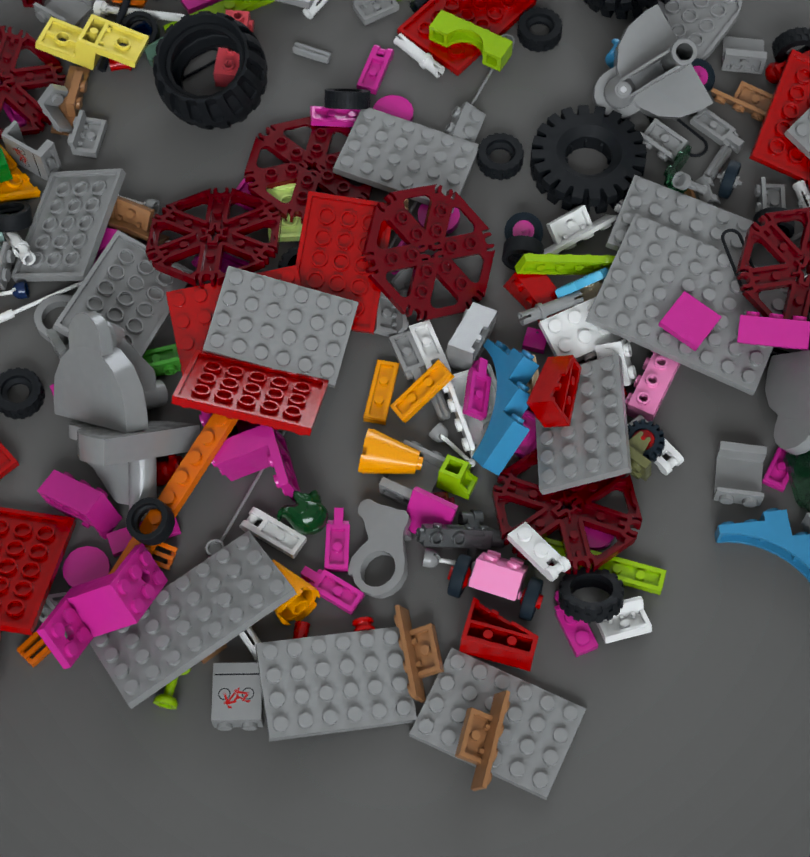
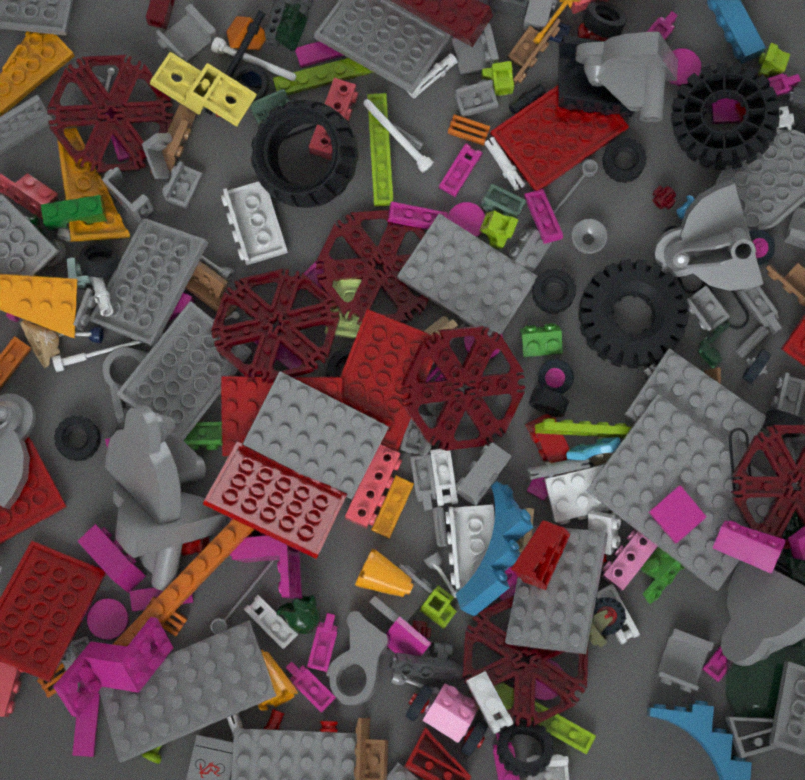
camera: 10 degrees right, 15 degrees up
(83, 689) = (86, 729): none -> dark pink tile
(137, 512) = (181, 602): black tyre -> none
(171, 154) = (254, 223): none -> white bracket
(288, 66) = (380, 153): none -> lime plate
(336, 69) = (423, 162): none -> white piece
(347, 98) = (426, 203): black tyre -> none
(355, 374) = (372, 487): none -> coral brick
(374, 34) = (456, 118): none -> orange tile
(422, 391) = (427, 519): light orange tile -> none
(426, 89) = (502, 202): none -> sand green bracket
(427, 108) = (498, 228): none -> lime brick
(450, 29) = (538, 147): lime arch -> none
(471, 90) = (543, 216): none -> dark pink plate
(477, 390) = (475, 531): dark pink hinge -> none
(499, 204) = (541, 340): none -> bright green bracket
(523, 93) = (593, 228): none -> light grey piece
(575, 227) = (602, 384): white bracket -> none
(589, 52) = (664, 197): none -> dark red gear
(689, 389) = (663, 570): none -> bright green bracket
(702, 185) = (712, 365): light grey bar -> none

